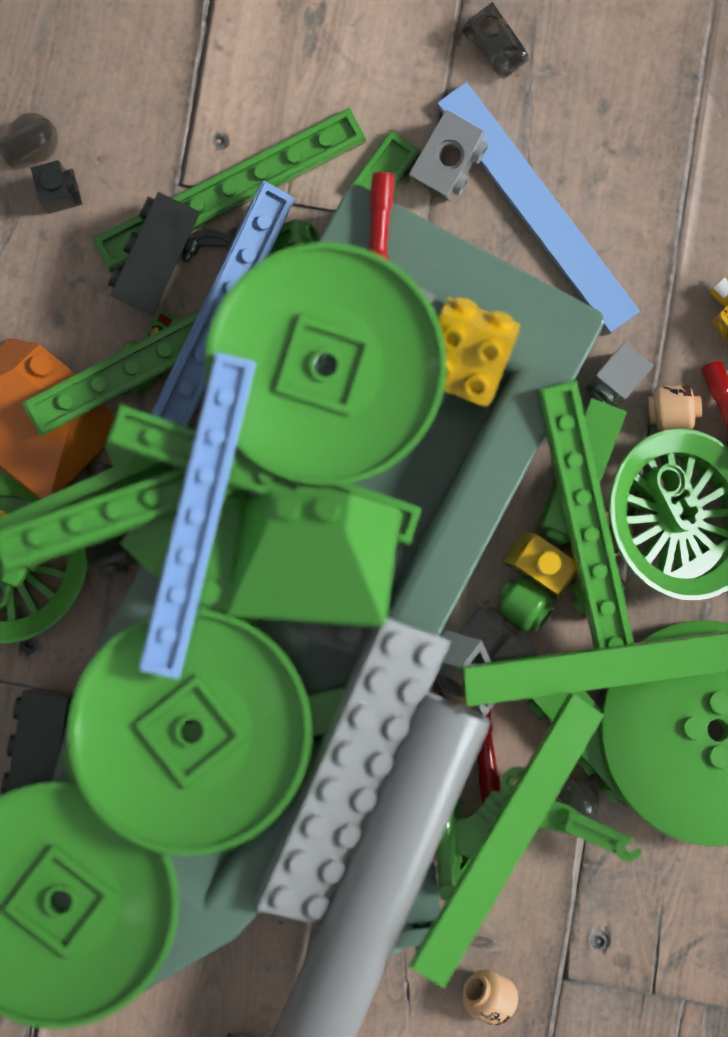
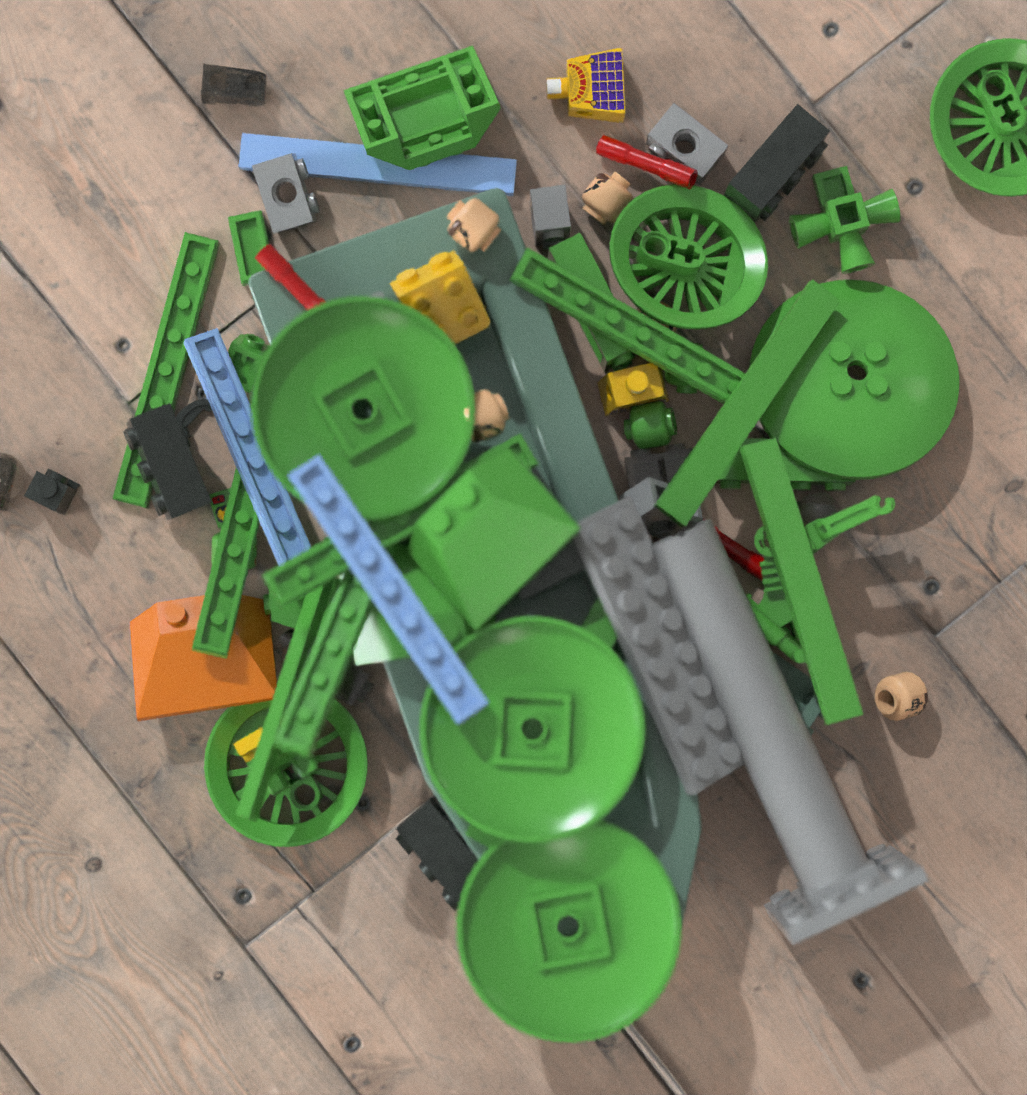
camera: 45 degrees left, 0 degrees up
(413, 469) = (489, 415): none -> light nougat head
(554, 320) = (473, 225): none -> light nougat head
(612, 205) = (425, 110): none -> bright green slope

